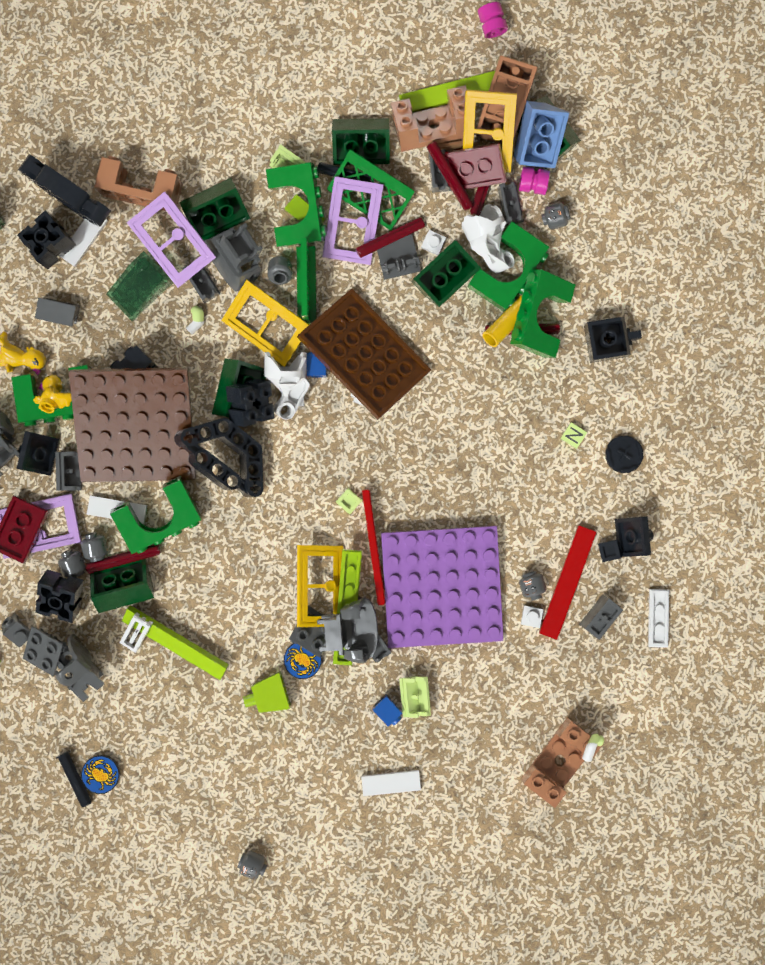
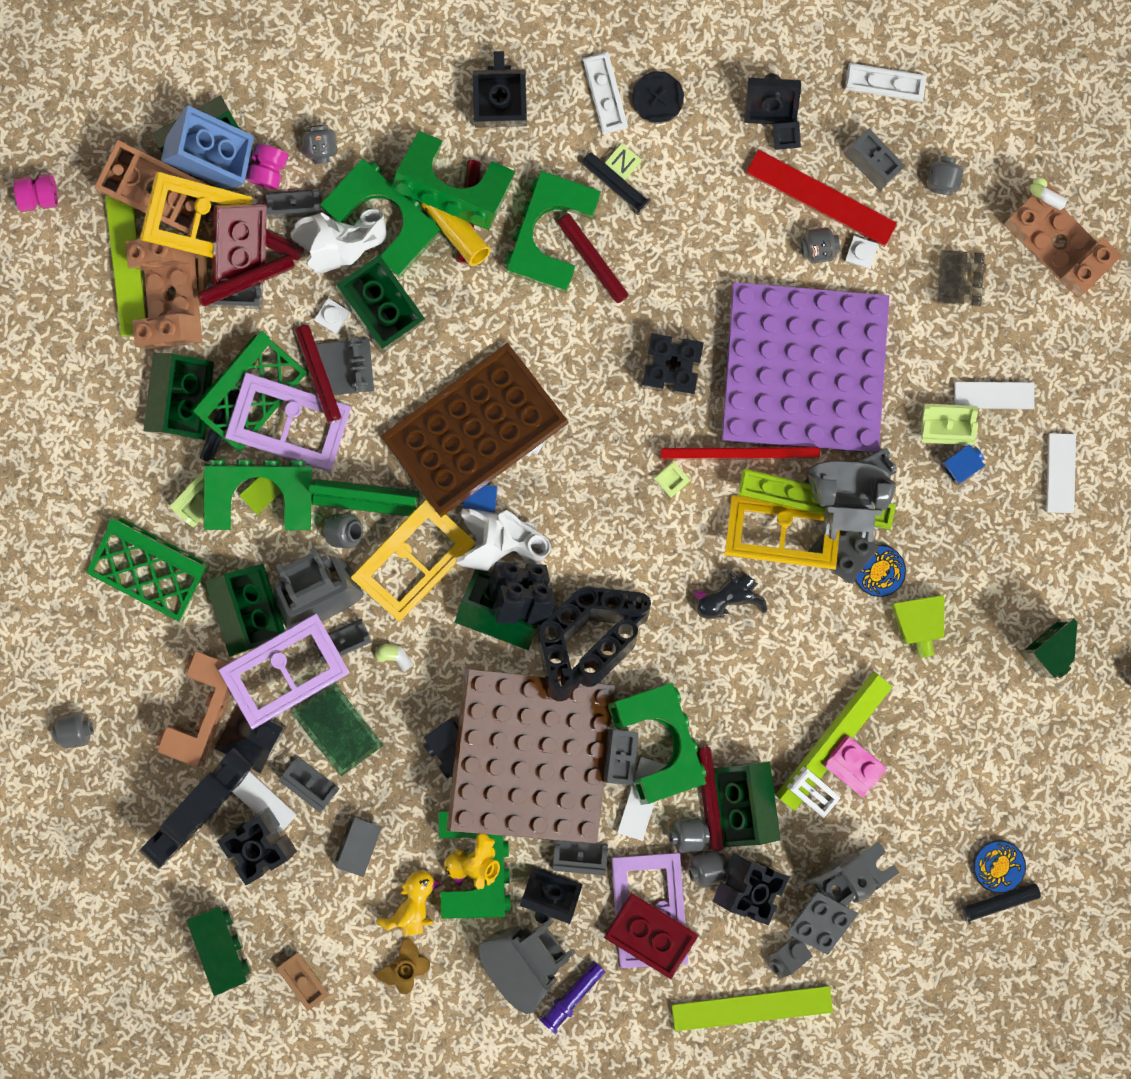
camera: 85 degrees left, 0 degrees up
(96, 271) = (309, 784): none -> dark grey hinge
(113, 100) = (72, 730): none -> dark grey head
(117, 228) = (255, 743): none -> black slope
(143, 490) = (620, 757): none -> dark grey hinge
(159, 660) = (855, 766): none -> plate
(251, 141) = (157, 547): none -> green fence
(259, 794) = (1053, 650): none -> dark green slope
(273, 557) = (735, 591): none -> black animal
(439, 481) = (682, 377): none -> black brick
(441, 727) = (995, 395): none -> white tile
(500, 423) = (593, 258): none -> dark red axle
(523, 685) = (952, 278): none -> clear smoke plate
(542, 386) = (549, 194): none -> green arch
(557, 432) = (615, 182): none -> black axle
(596, 670) = (945, 176): none -> dark grey head
(621, 416) = (605, 93): none -> white tile

